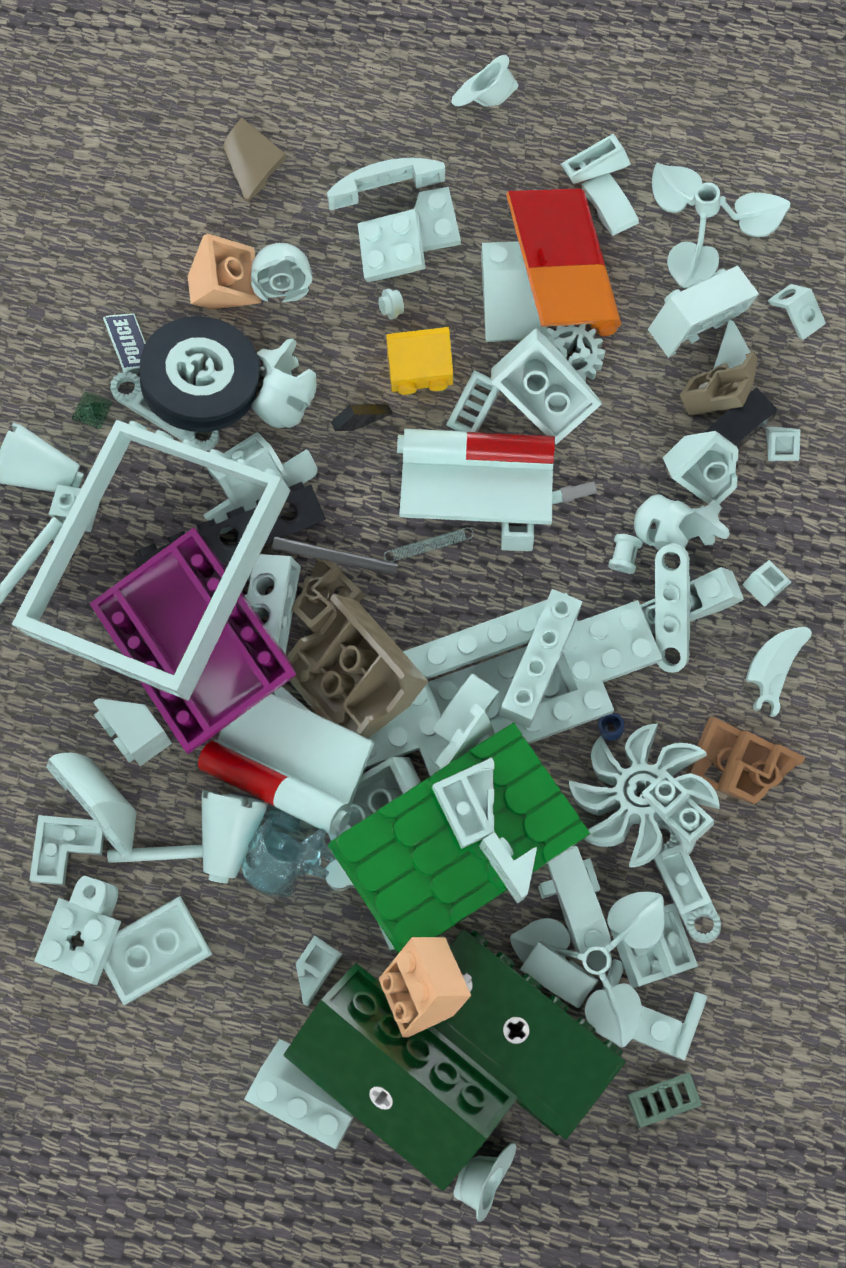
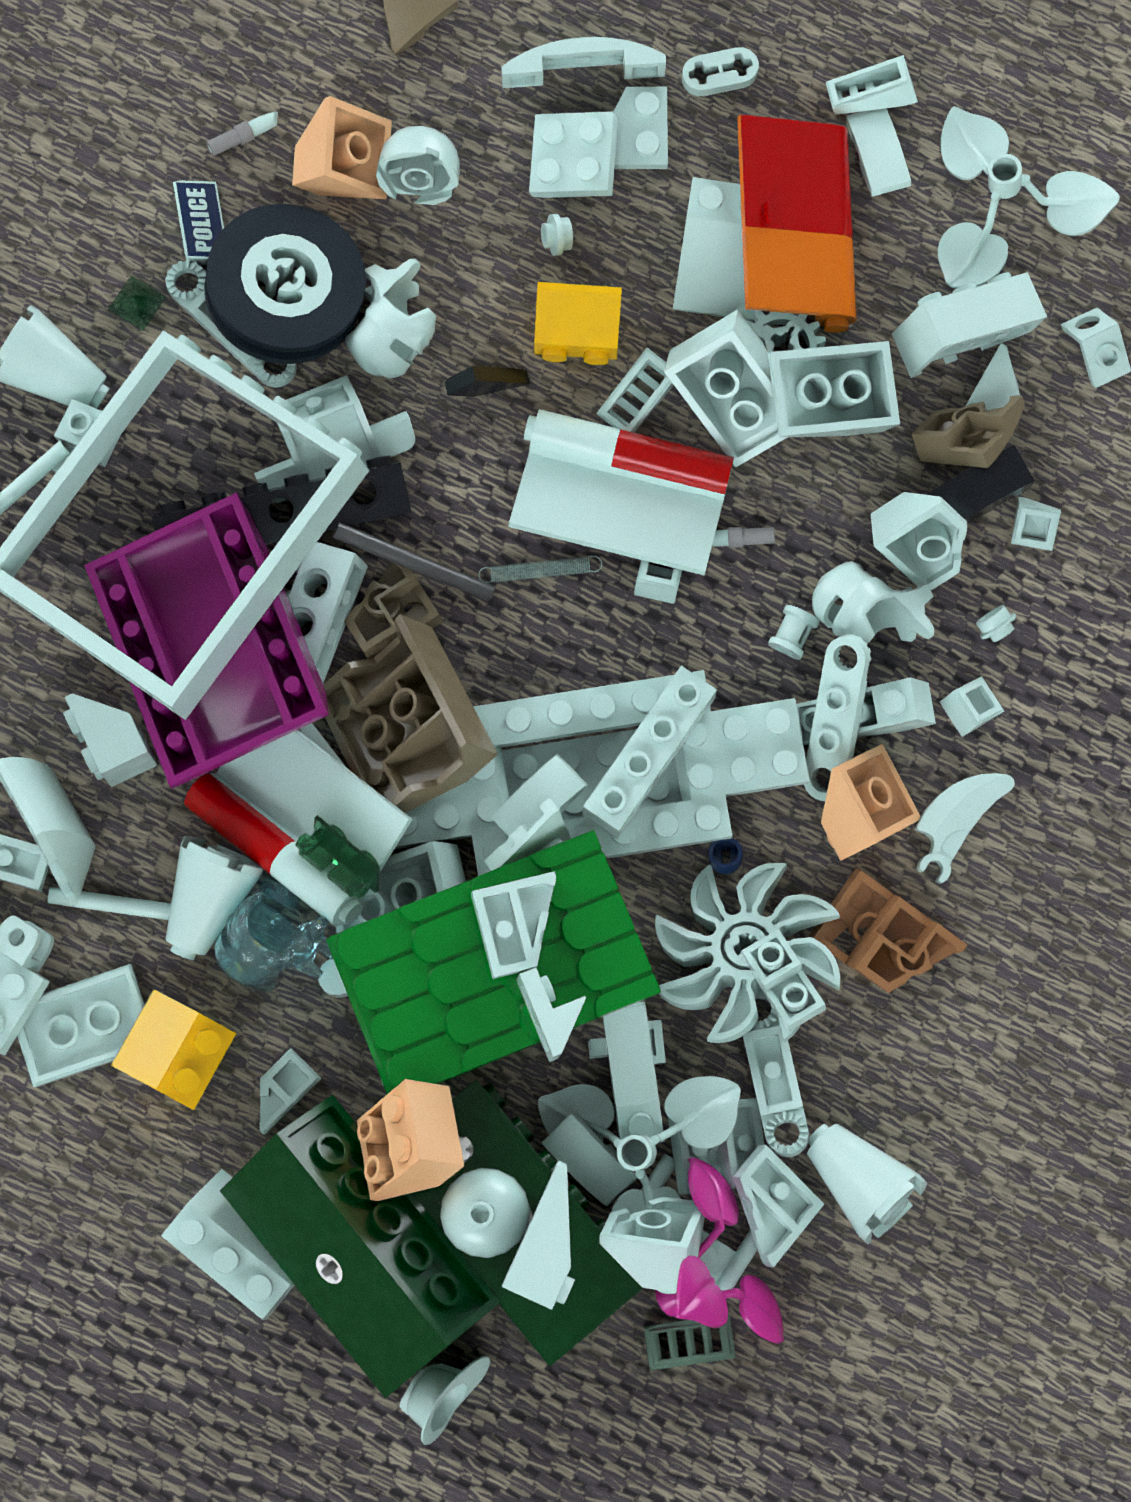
camera: 10 degrees right, 5 degrees up
(146, 276) = (242, 133): none -> light grey piece
(226, 954) = (173, 1049): none -> yellow slope
(338, 787) = (354, 869): none -> clear green hinge
(485, 172) = (717, 63): none -> light aqua beam
(491, 1030) = (484, 1212): none -> light aqua cylinder
(546, 1051) = (544, 1253): none -> light aqua slope
(619, 372) = (834, 390): none -> light aqua slope
(627, 1026) = (654, 1240): none -> light aqua slope
(662, 1054) = (696, 1292): none -> dark pink plant
(706, 668) = (865, 803): none -> light nougat slope
(706, 980) = (774, 1203): none -> light aqua wing
(768, 948) = (863, 1180): none -> light aqua cone
(771, 519) = (996, 624): none -> light aqua plate

